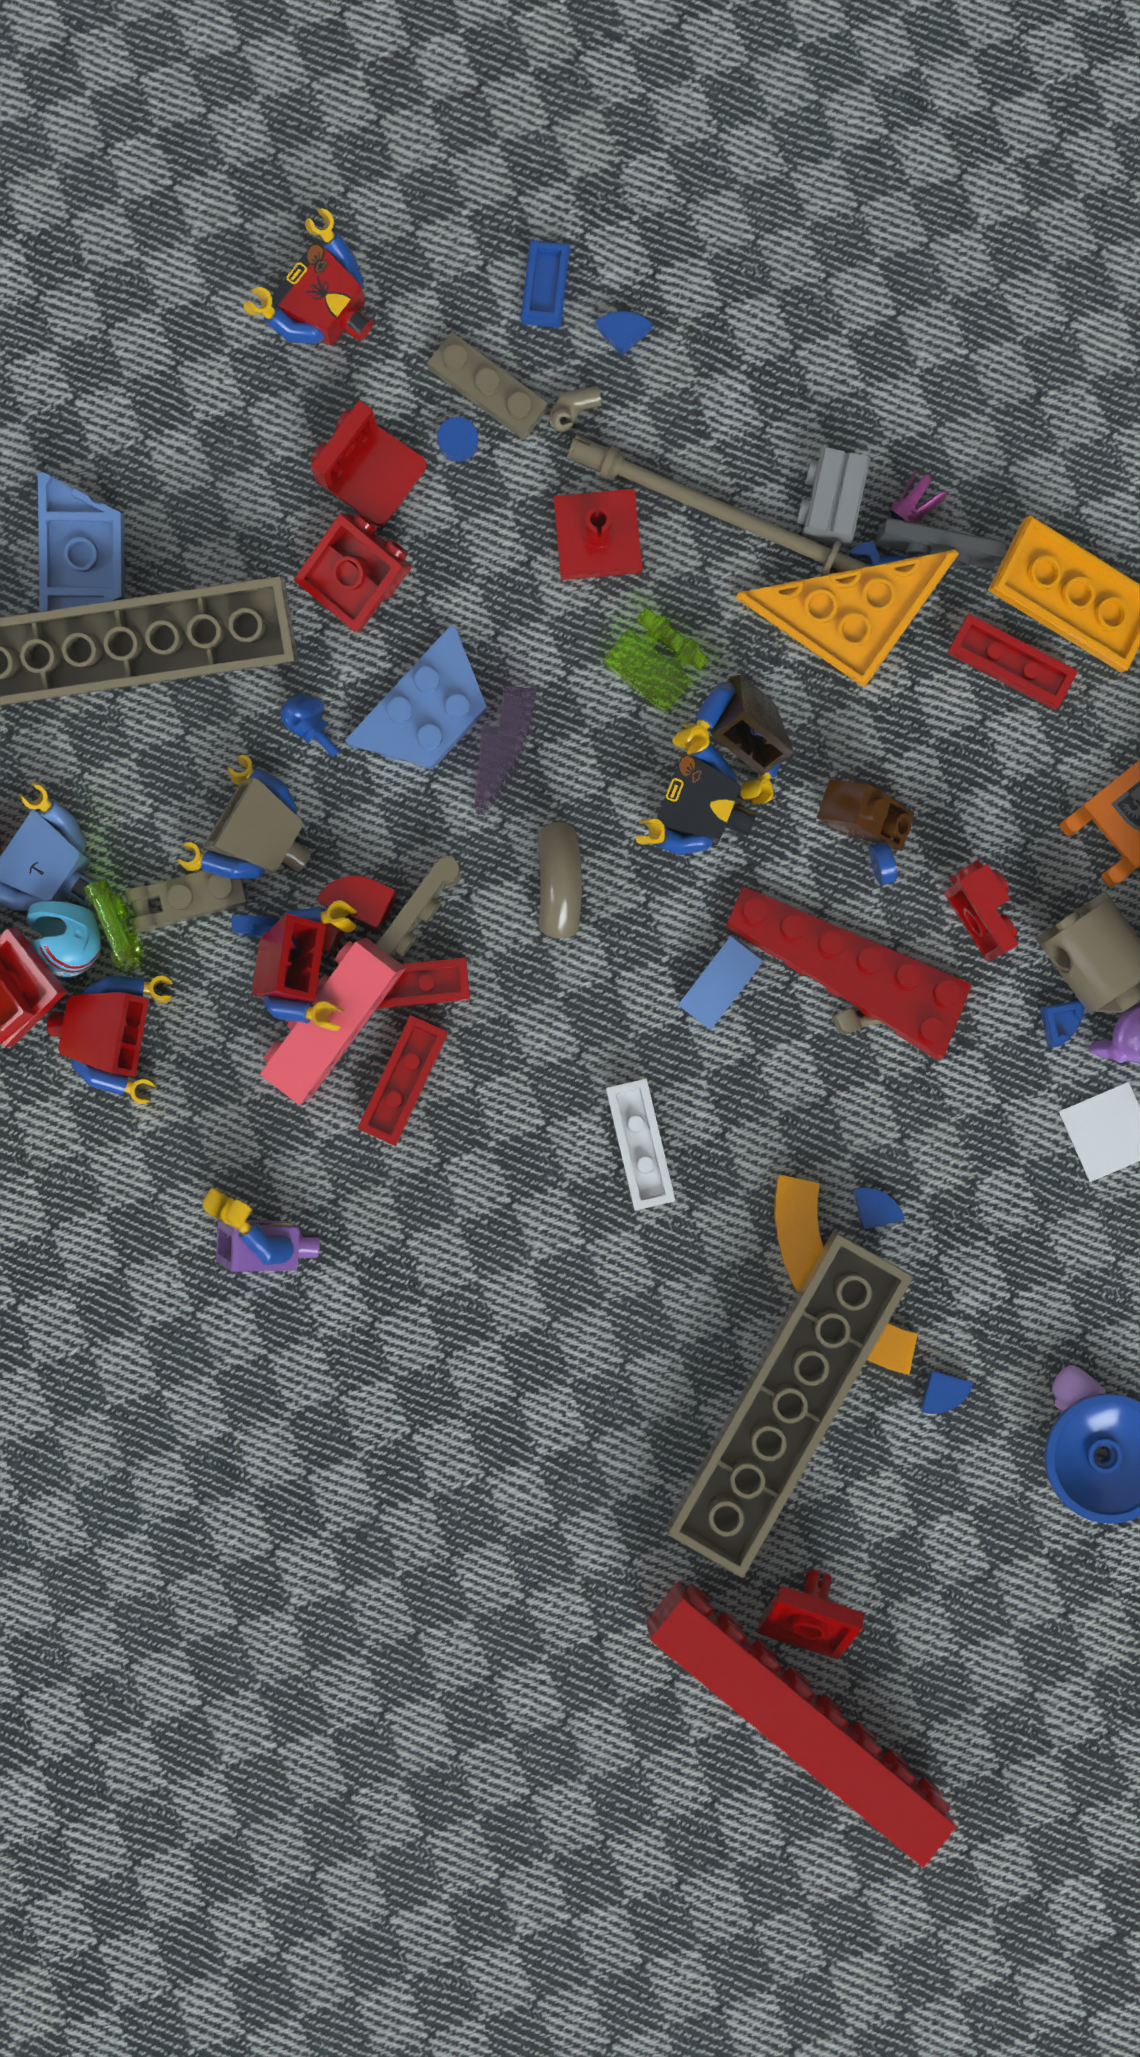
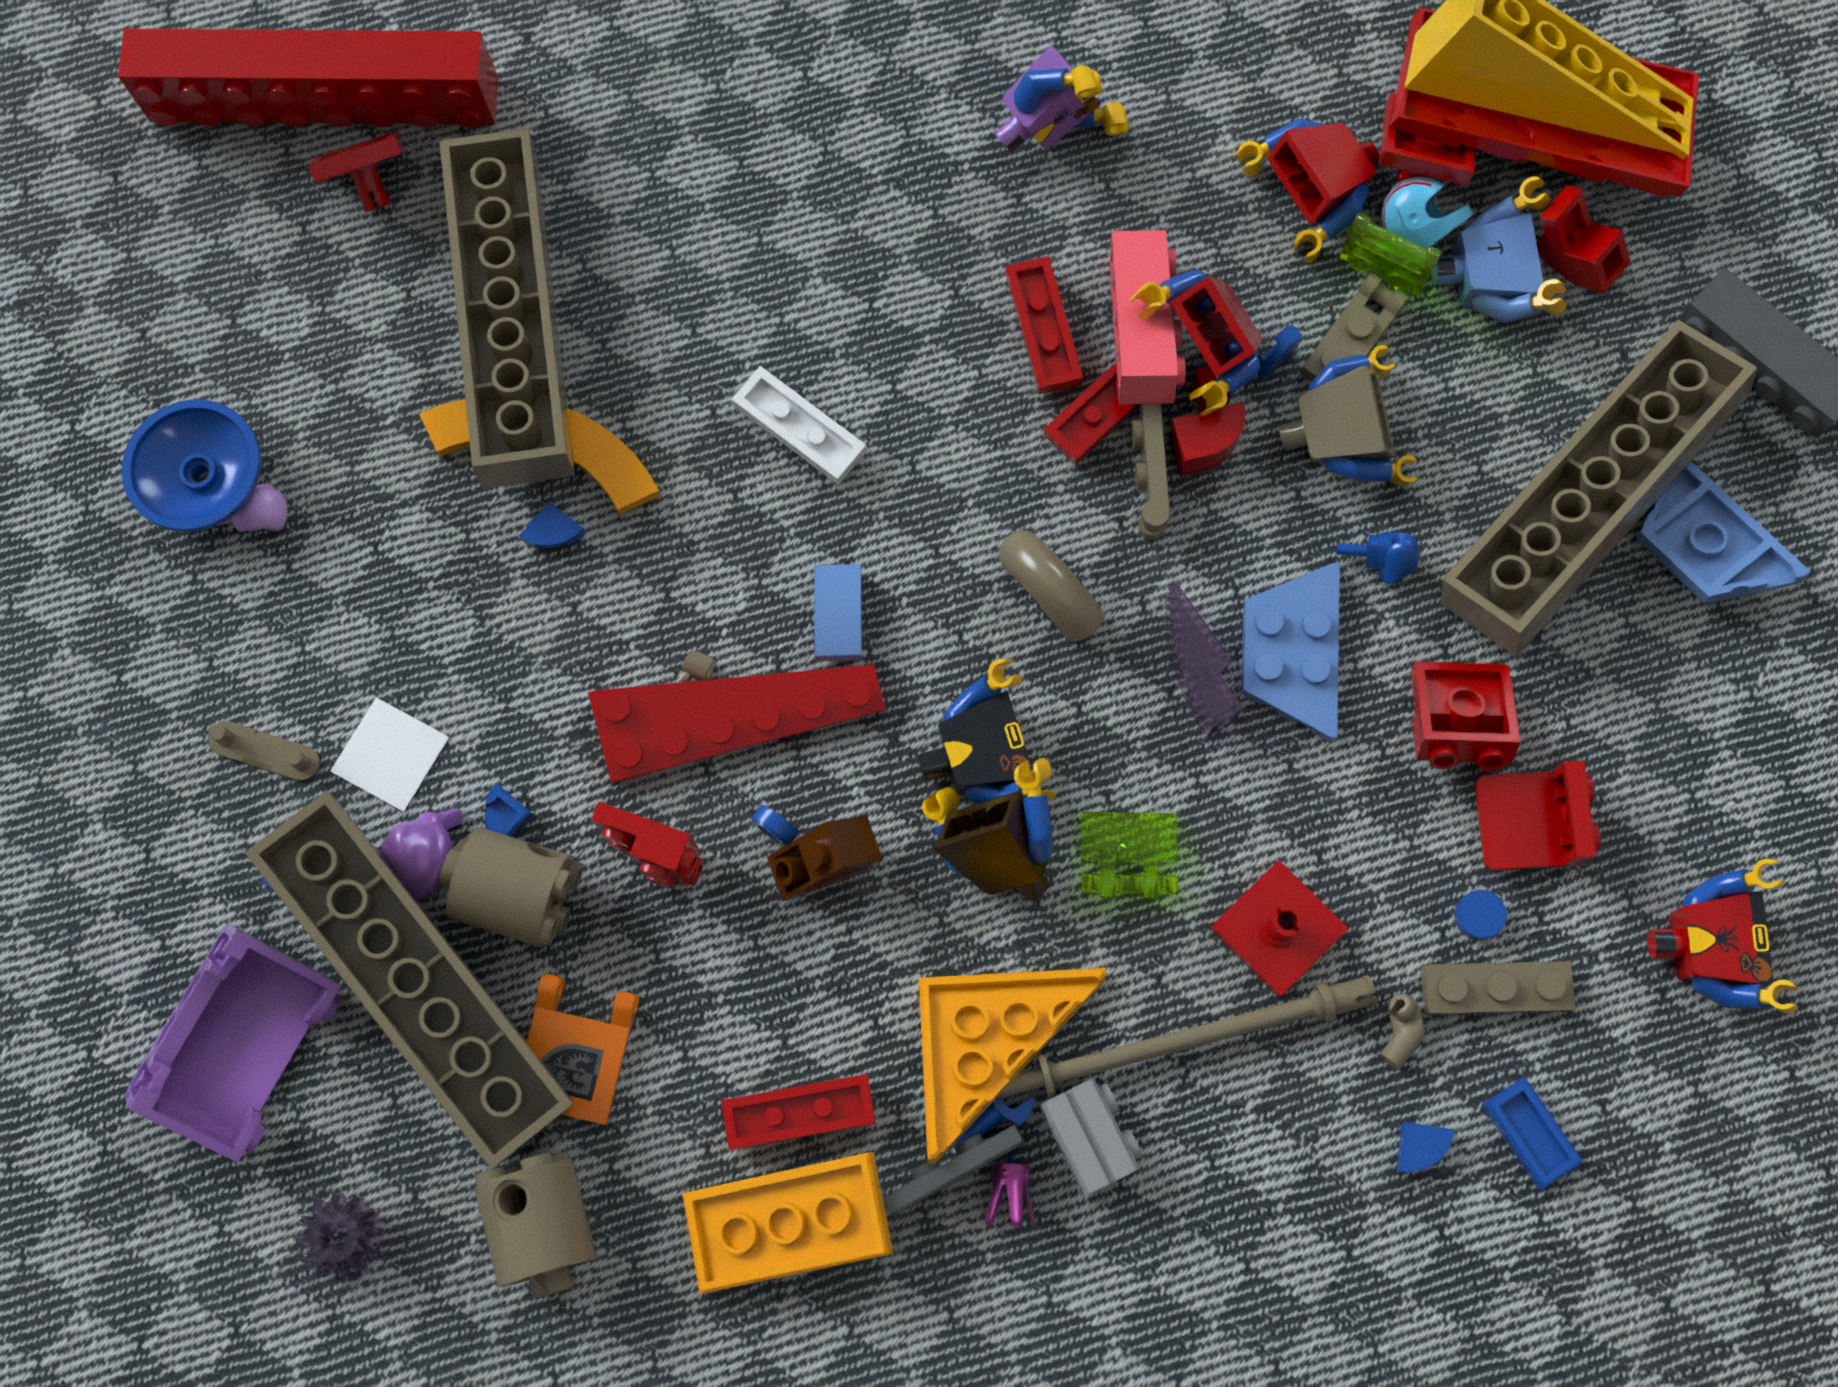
camera: 145 degrees right, 10 degrees down
(943, 1392) = (377, 425): blue tile -> none

